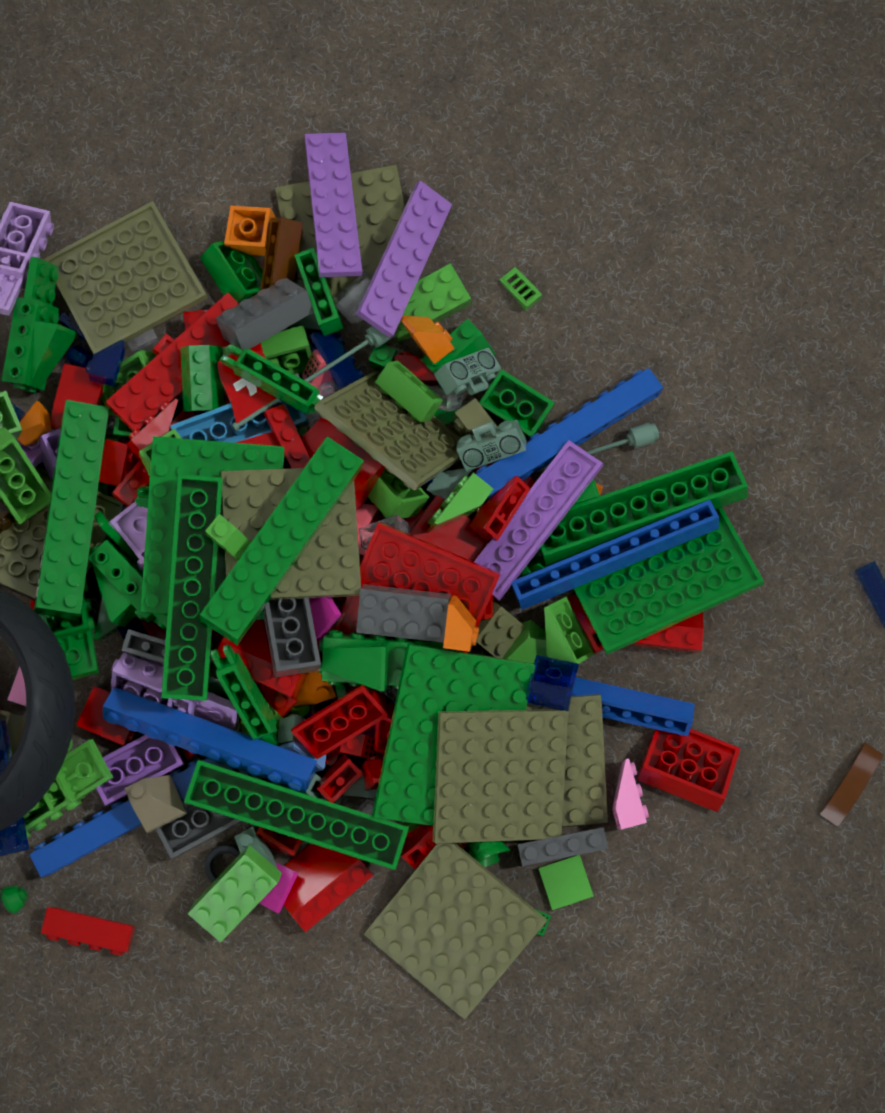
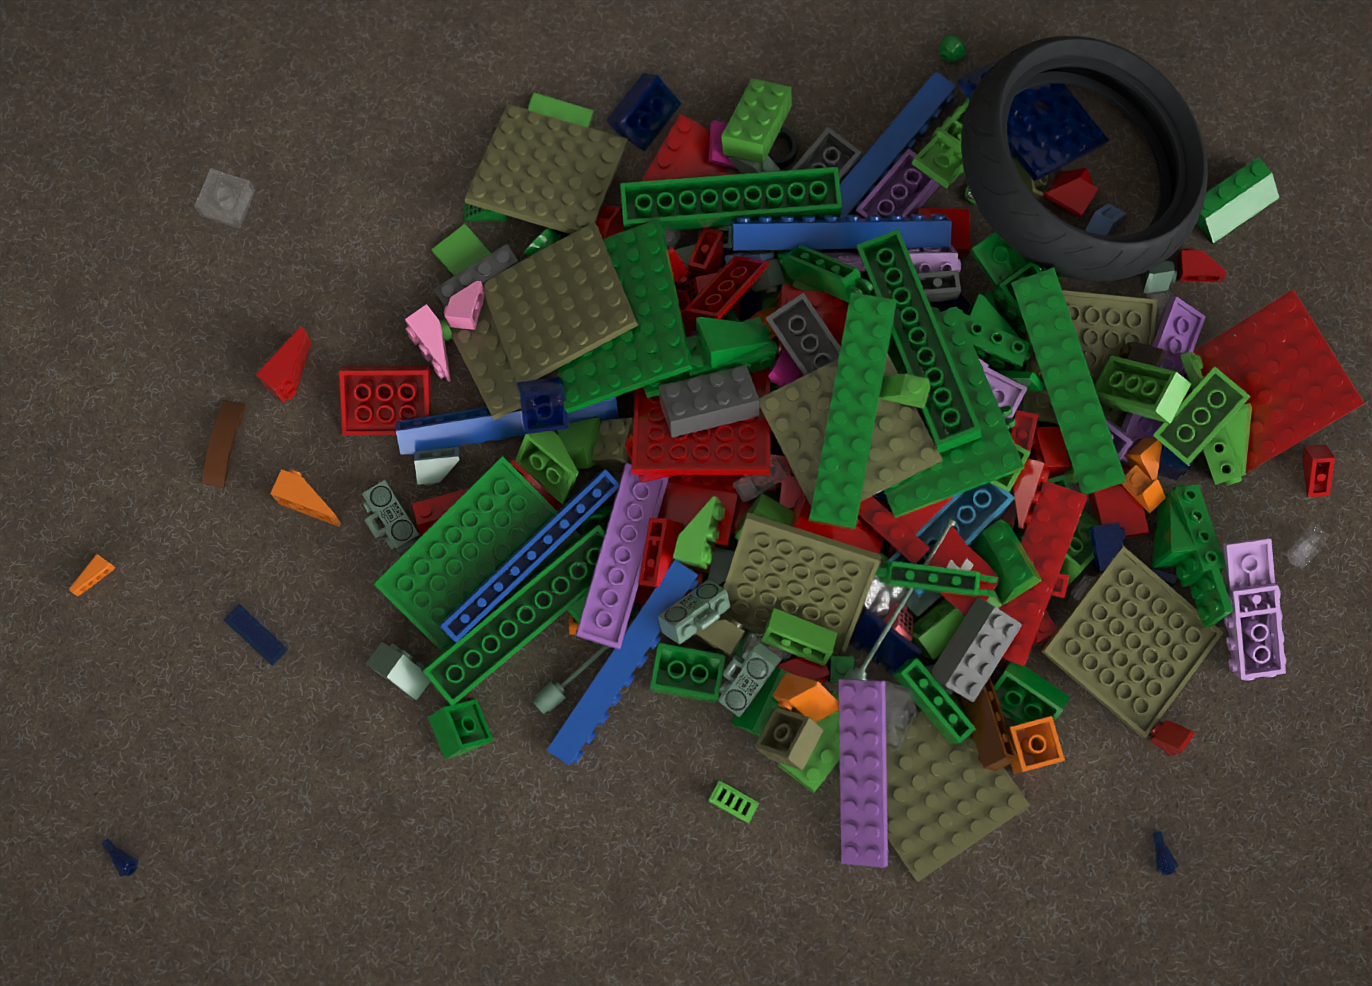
camera: 155 degrees right, 5 degrees down
(50, 398) = (1144, 490): none -> orange slope
(79, 356) = (1138, 548): clear blue cone -> none
(87, 929) = (873, 48): red brick -> none
(131, 189) = (1171, 737): none -> red slope
(155, 801) = (864, 166): dark tan slope -> none
(185, 102) = (1164, 859): none -> clear blue cone
(333, 205) = (962, 803): medium lavender plate -> none
(336, 956) = (644, 111): none -> clear blue slope
(416, 991) = (560, 110): none -> bright green tile
(455, 307) = (789, 738): none -> olive brick
(460, 627) = (649, 405): orange slope -> none
(584, 817) = (465, 307): none -> bright pink slope
(610, 814) = (447, 334): none -> bright green tile
(666, 681) = (434, 464): none -> sand green slope
(720, 640) = (386, 507): none -> sand green piece
(730, 434) = (460, 728): none -> green slope
(766, 508) = (399, 669): none -> sand green brick
(773, 1027) = (225, 198): none -> clear brick
(774, 824) = (284, 370): none -> red slope
(797, 697) = (296, 493): none -> orange slope

